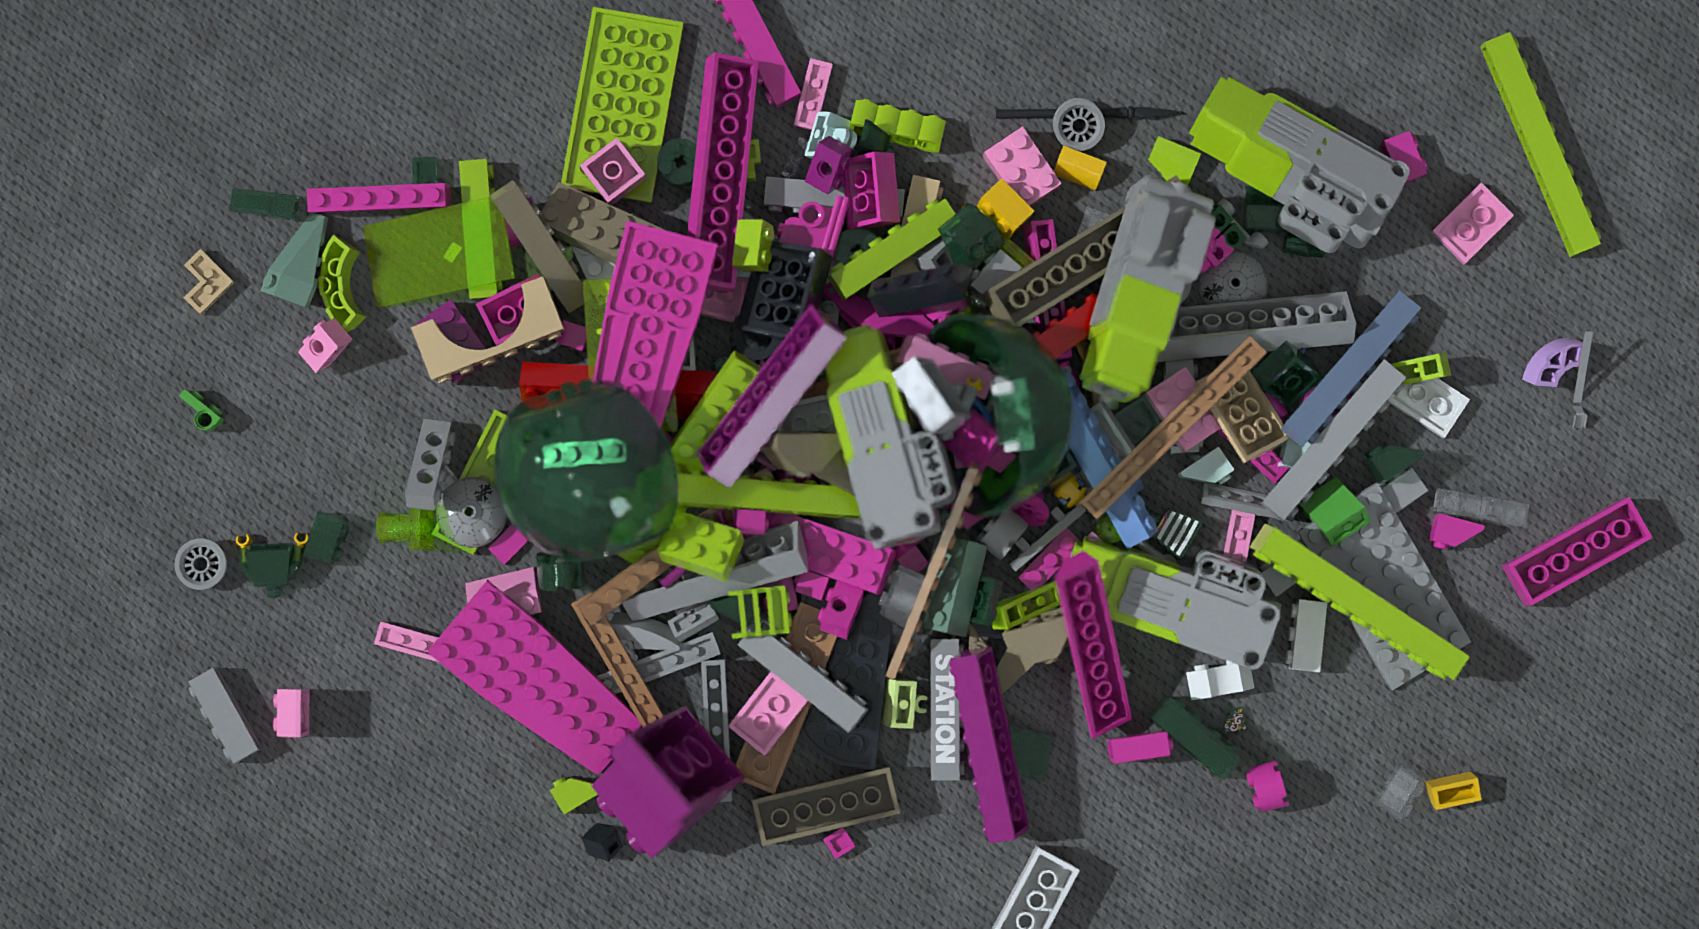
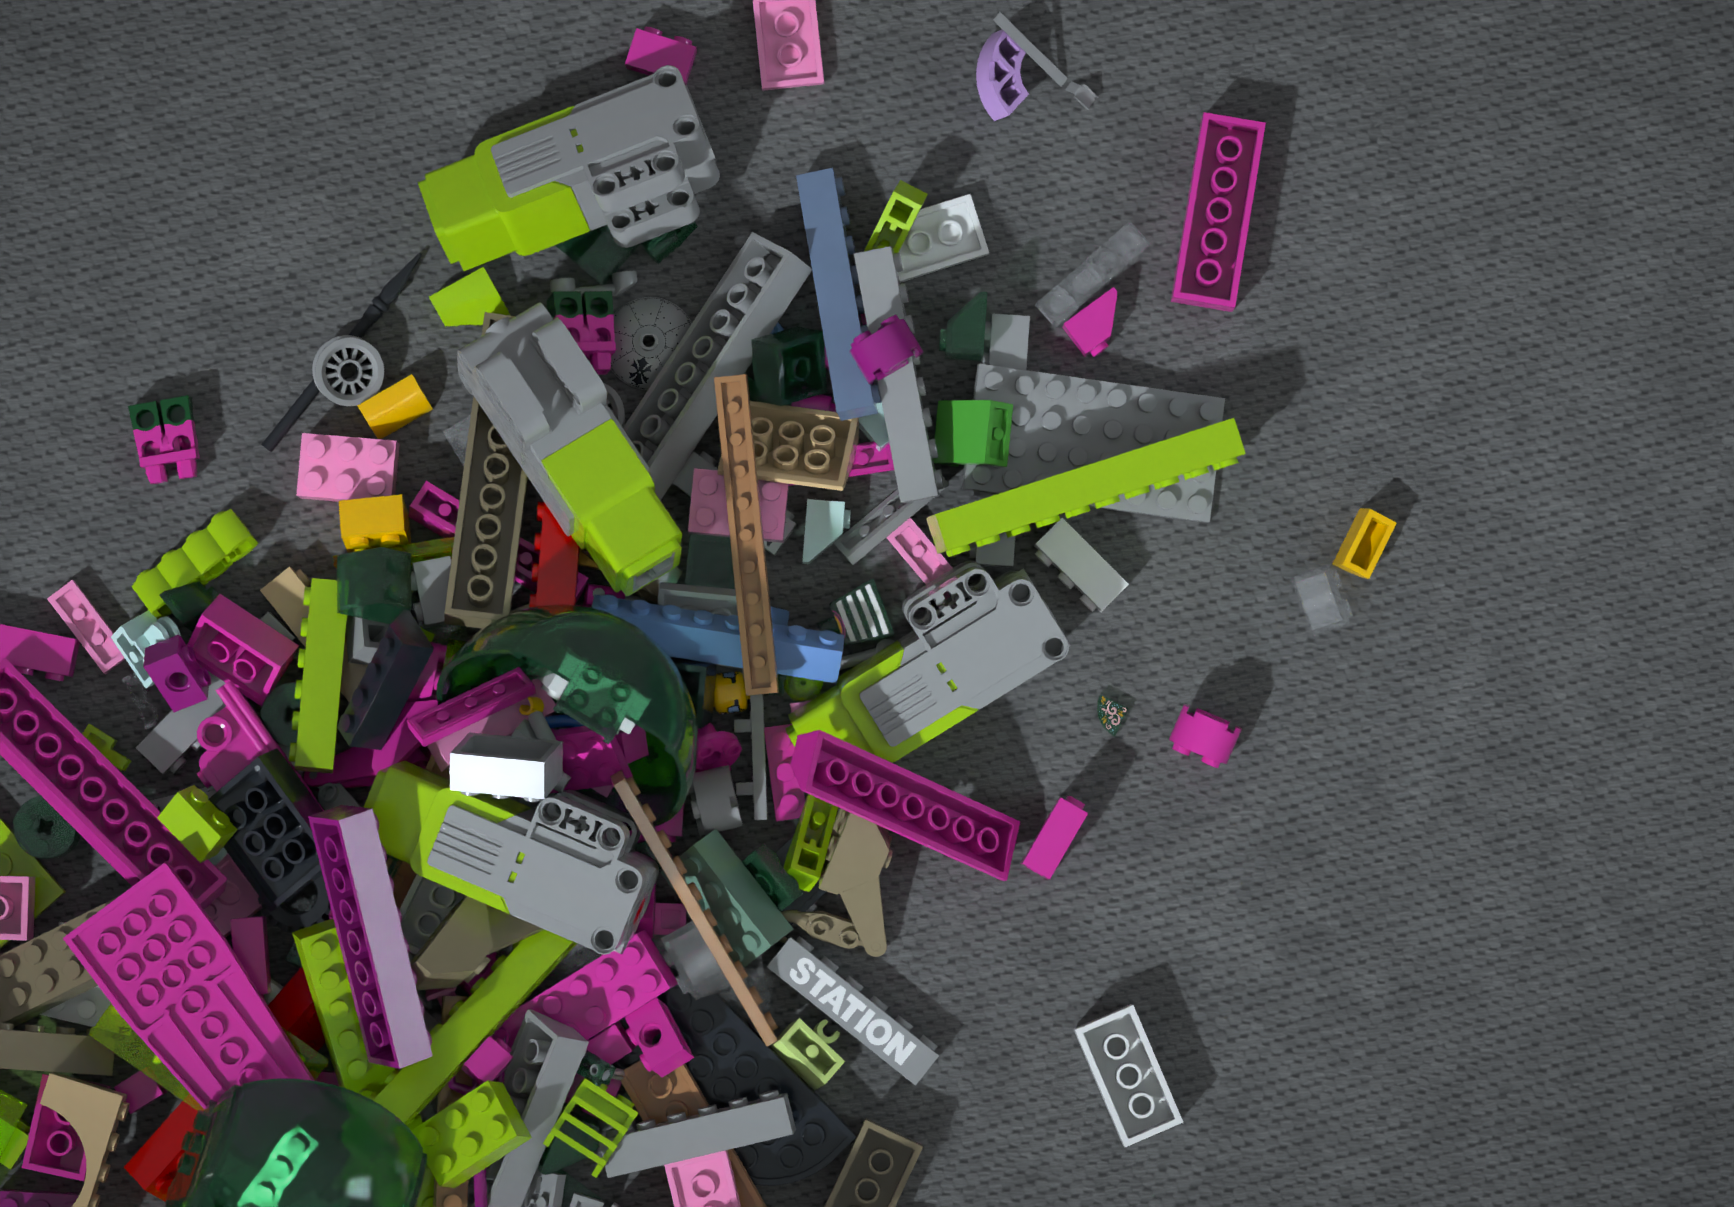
camera: 50 degrees left, 0 degrees up
(705, 335) = (252, 950): none -> dark pink brick
(795, 589) = (598, 1070): none -> clear green piece
(947, 348) = (471, 706): none -> dark pink tile
(952, 58) = (160, 447): none -> dark pink hips
(989, 744) = (925, 994): magenta brick -> none
(1031, 751) = (968, 960): clear green plate -> none
(1195, 738) = (1091, 771): clear green brick -> none
(1218, 680) = (1053, 696): white brick -> none
(1345, 422) = (884, 350): none -> magenta brick

